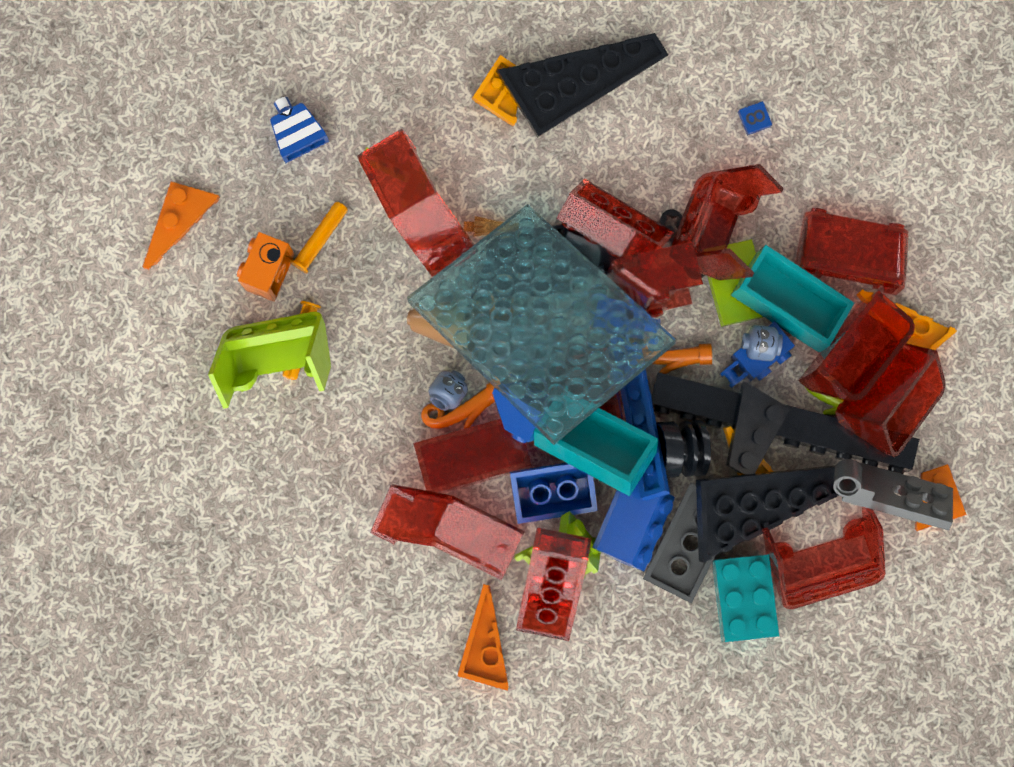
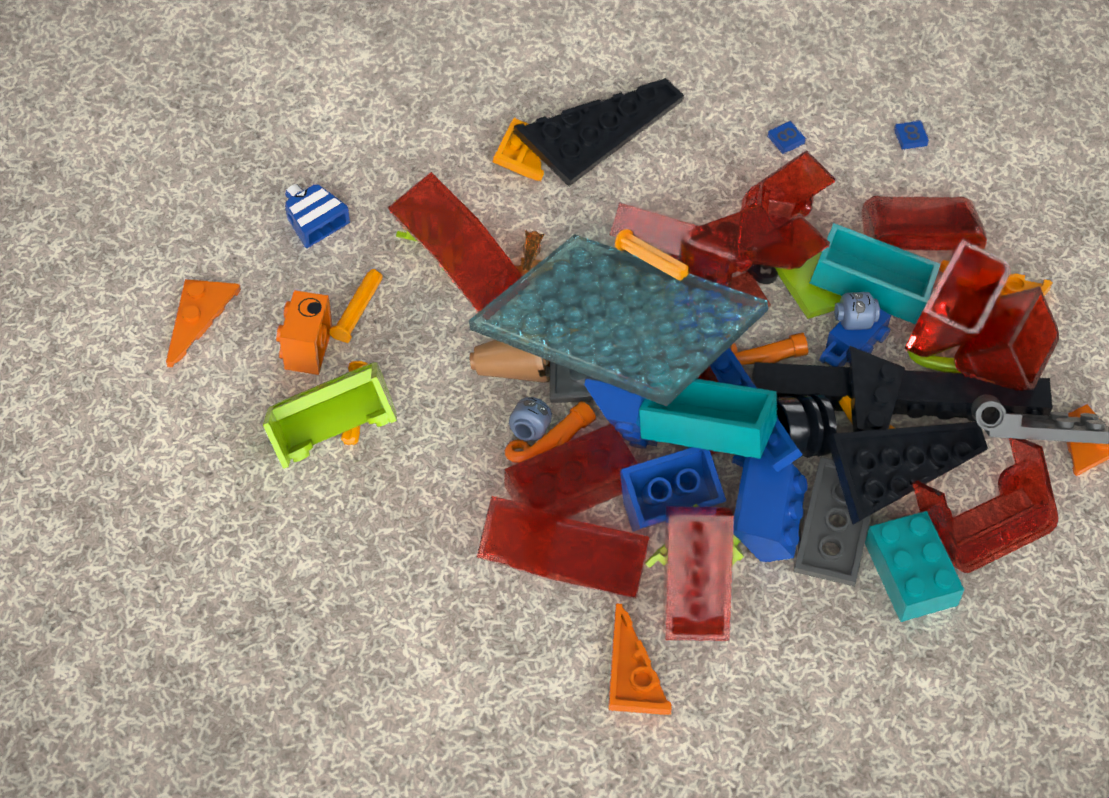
camera: 15 degrees left, 25 degrees down
(487, 205) = (531, 248): none -> clear orange piece
(586, 256) = (627, 241): none -> light orange axle
(874, 137) = (911, 135): none -> blue tile

